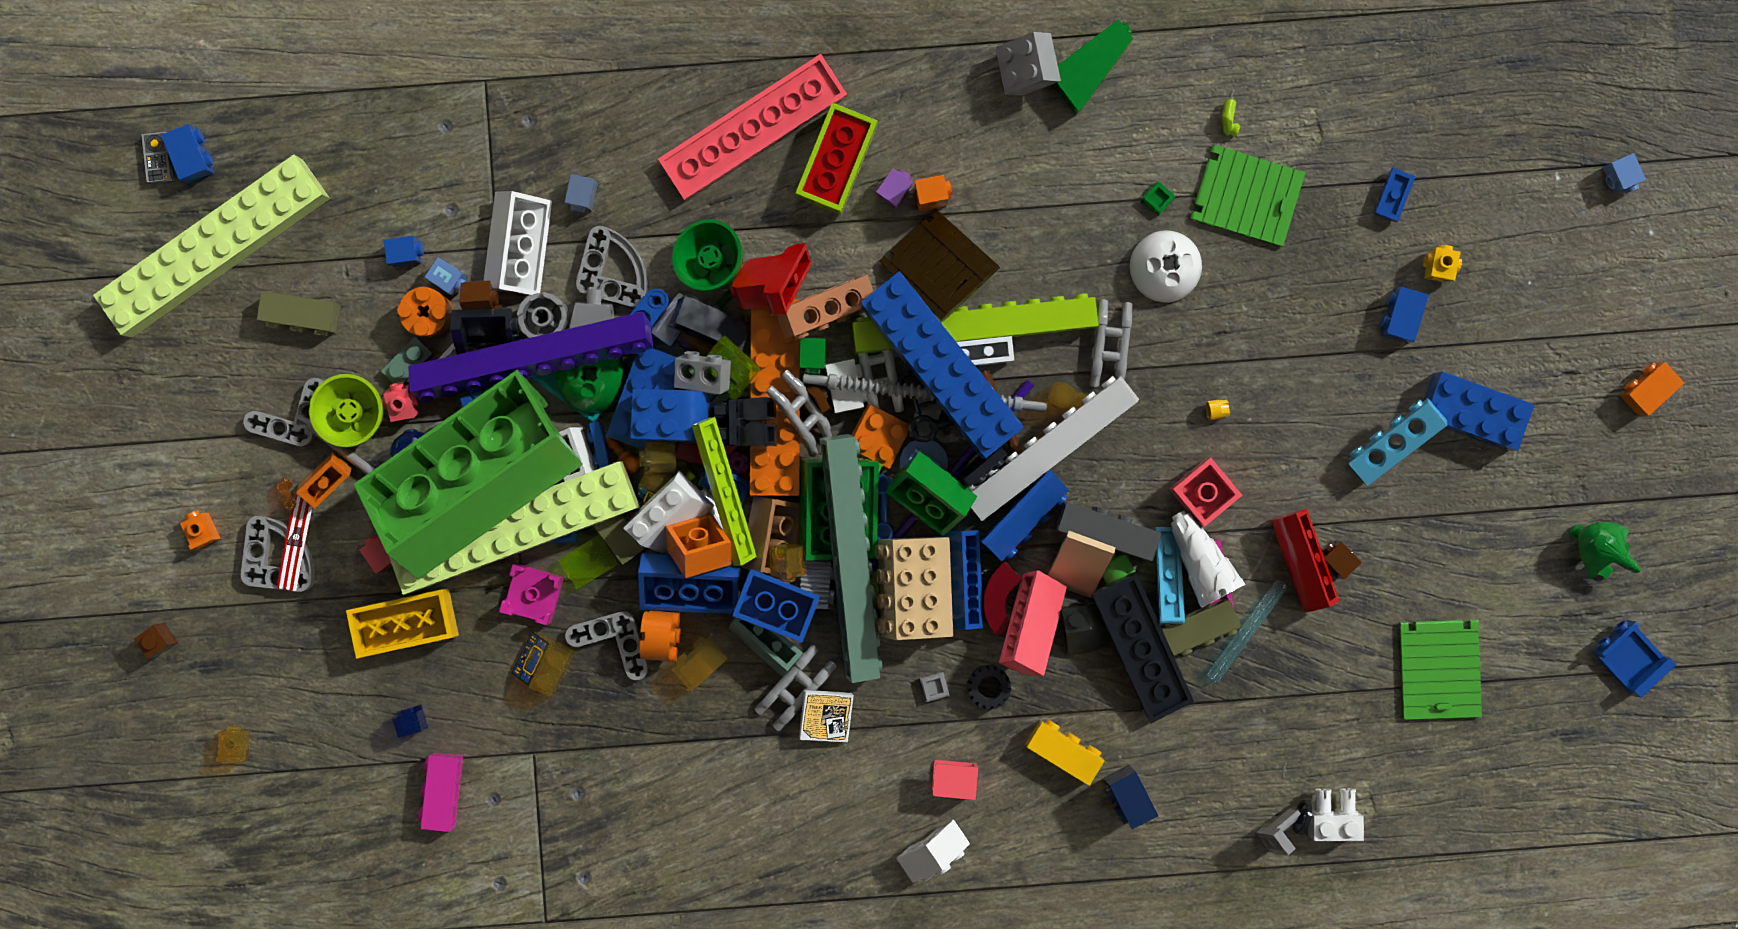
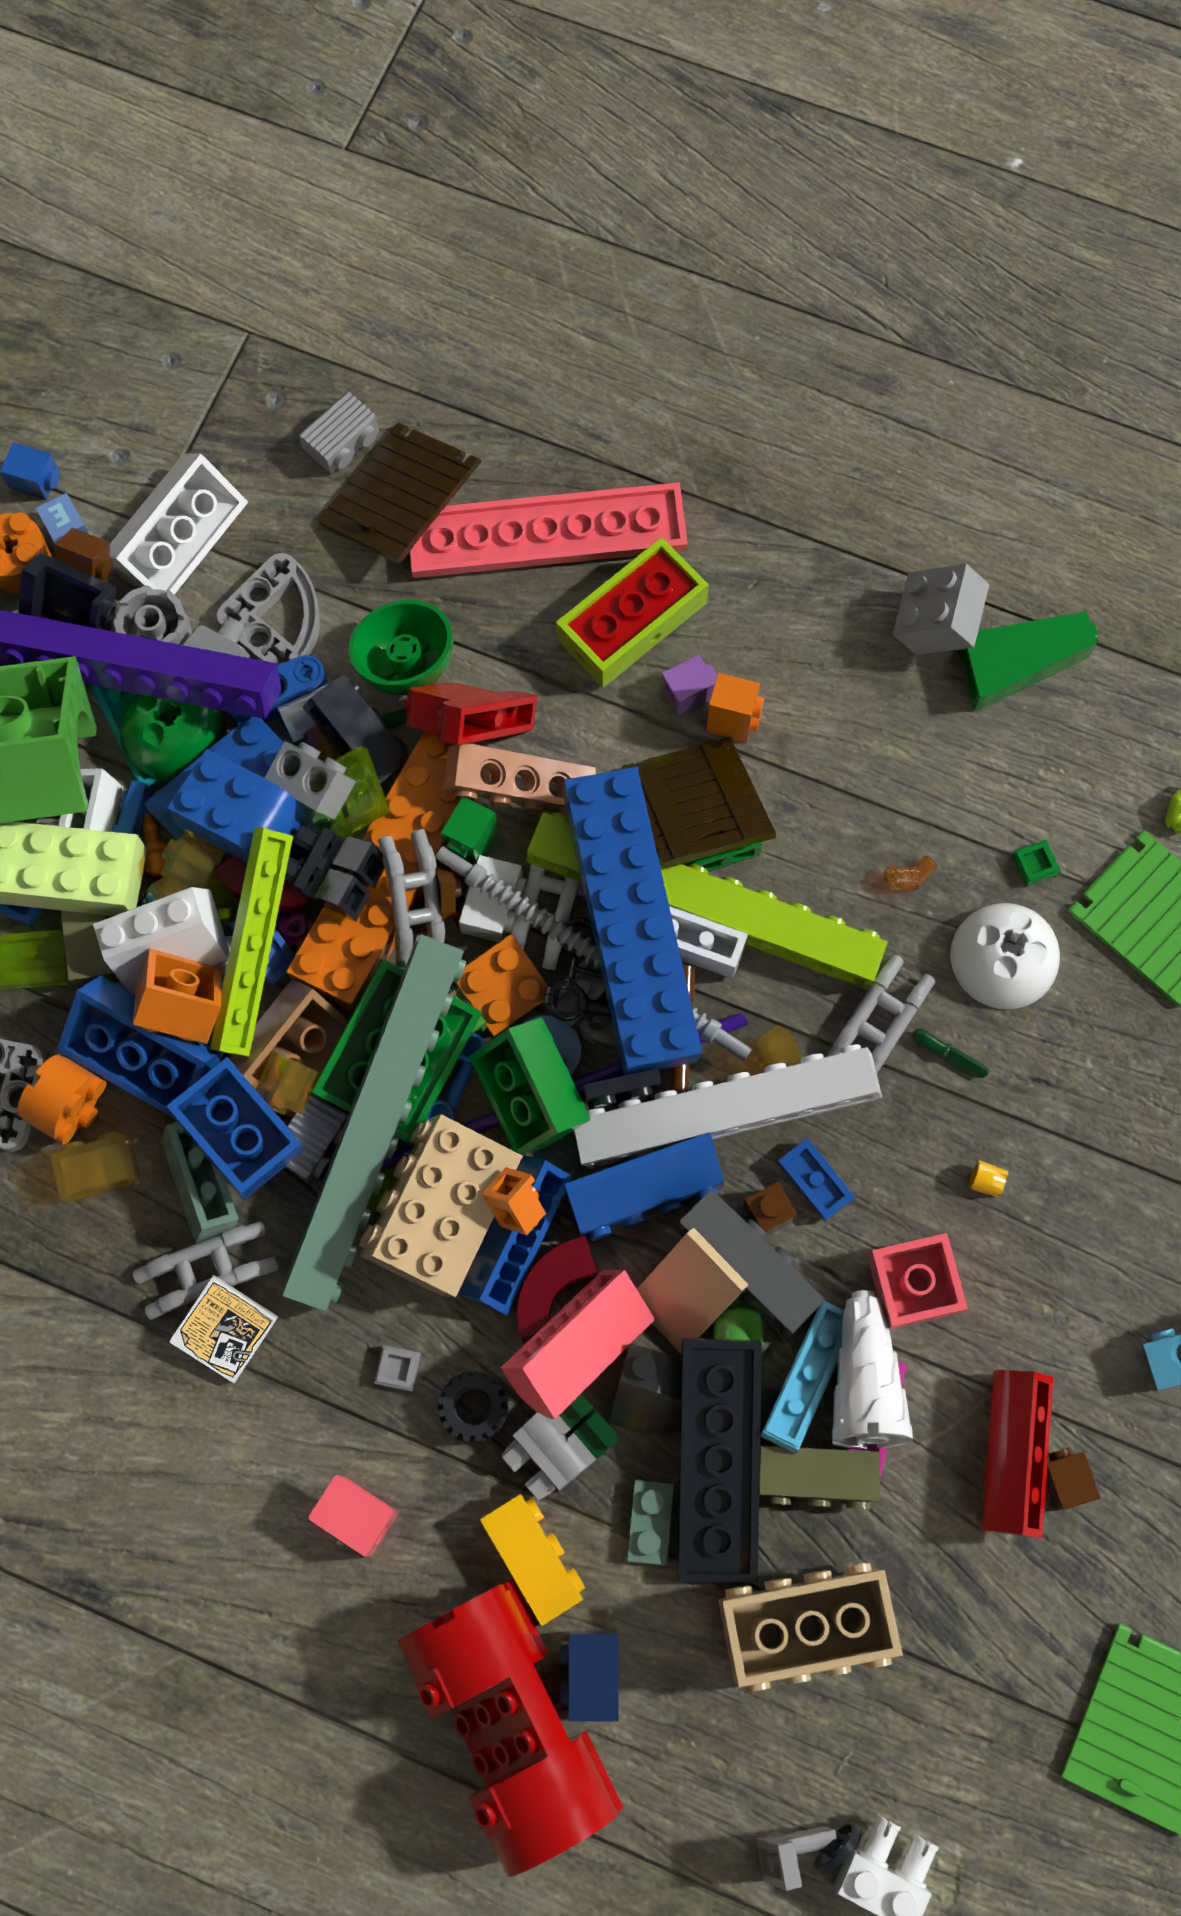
camera: 25 degrees right, 15 degrees down
(581, 193) = (288, 506): sand blue brick -> none
(586, 126) = (340, 433): none -> light grey brick
(646, 148) = (398, 492): none -> dark brown door
(934, 853) = (262, 1608): white brick -> none
(959, 566) = (514, 1201): none -> orange brick
(1051, 689) = (556, 1455): none -> light grey hips
(1088, 246) = (909, 878): none -> clear orange arm
(1101, 491) = (770, 1208): none -> reddish brown brick
(1119, 459) = (816, 1179): none -> blue plate
(1119, 698) = (650, 1522): none -> sand green plate
(1132, 868) = (539, 1783): none -> red cylinder
(1163, 344) = (950, 1054): none -> dark green piece
(1235, 713) = (809, 1627): none -> tan brick
(1247, 631) = (884, 1519): clear light blue axle -> none

